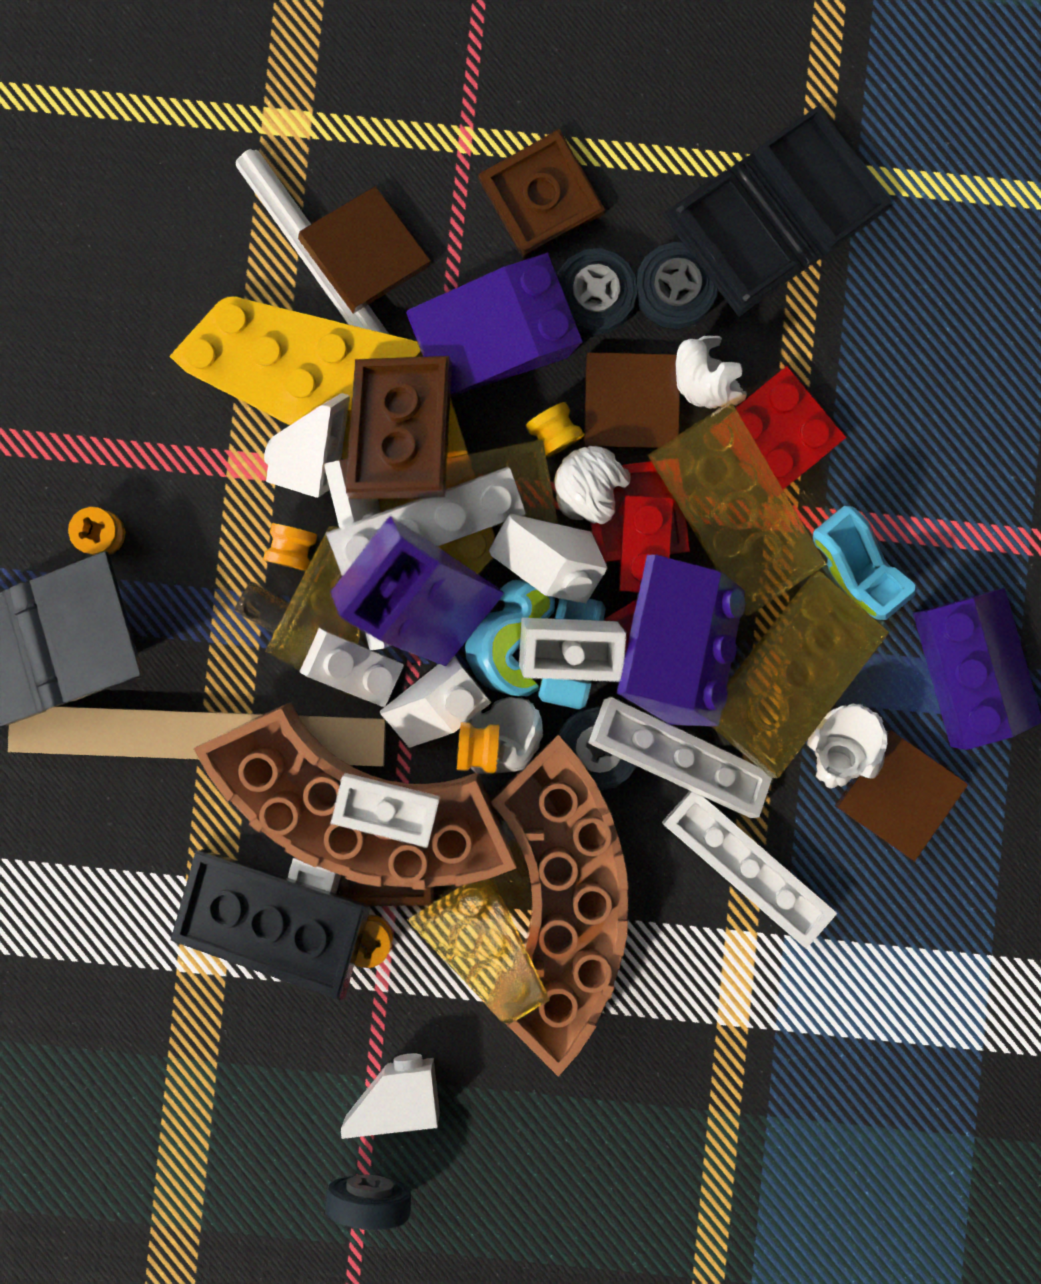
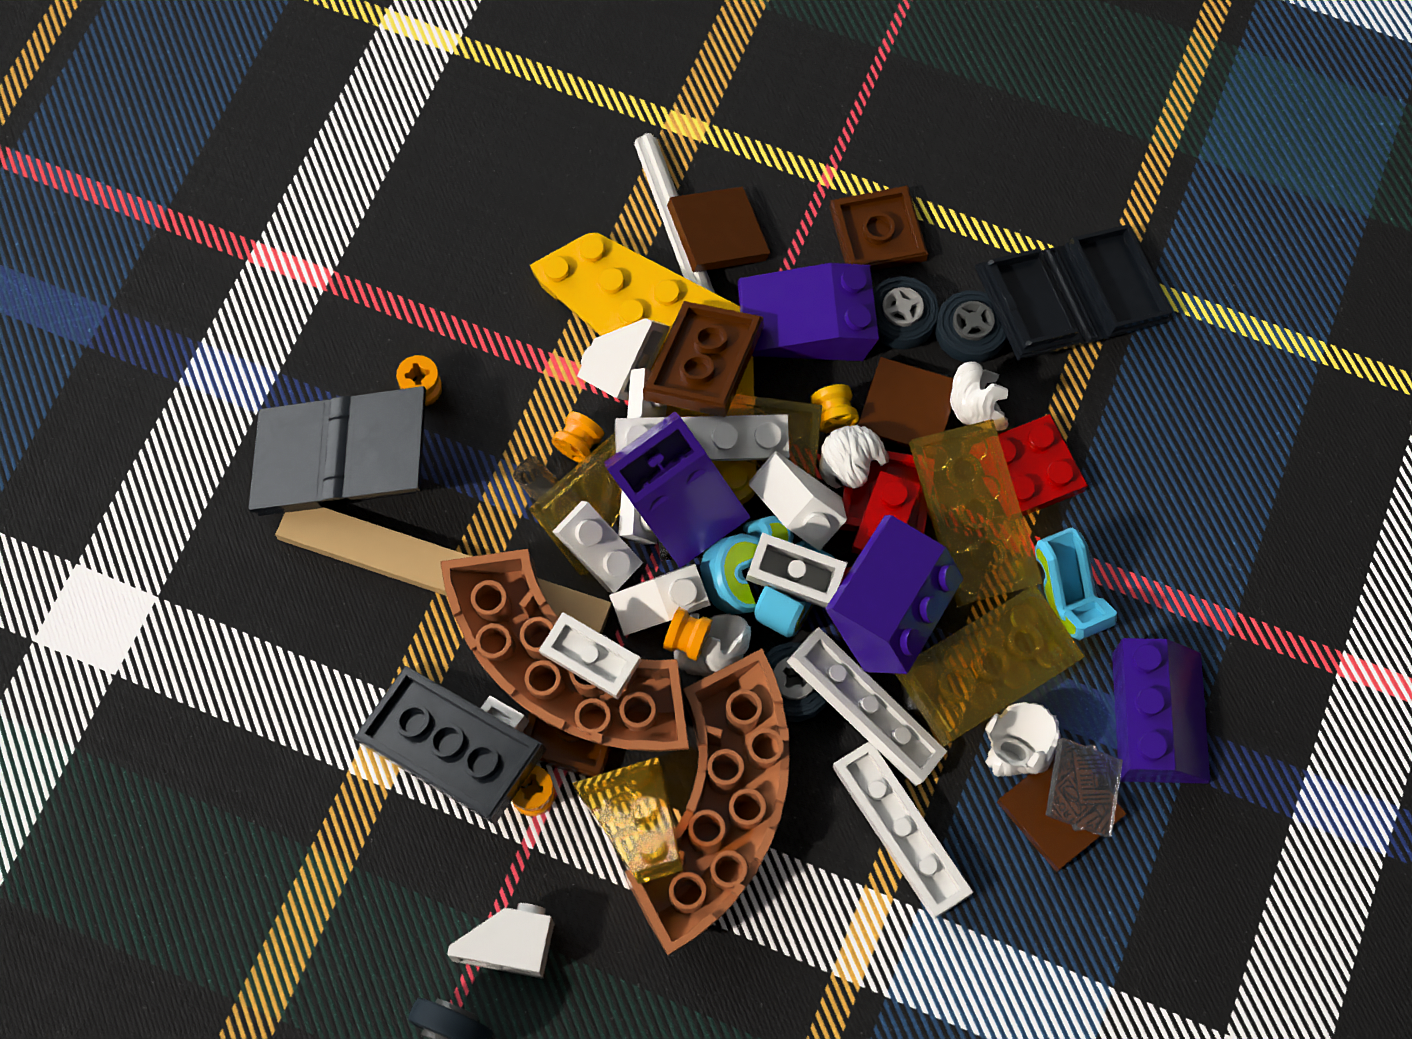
camera: 15 degrees right, 20 degrees down
(923, 777) = (1084, 787): none -> clear piece

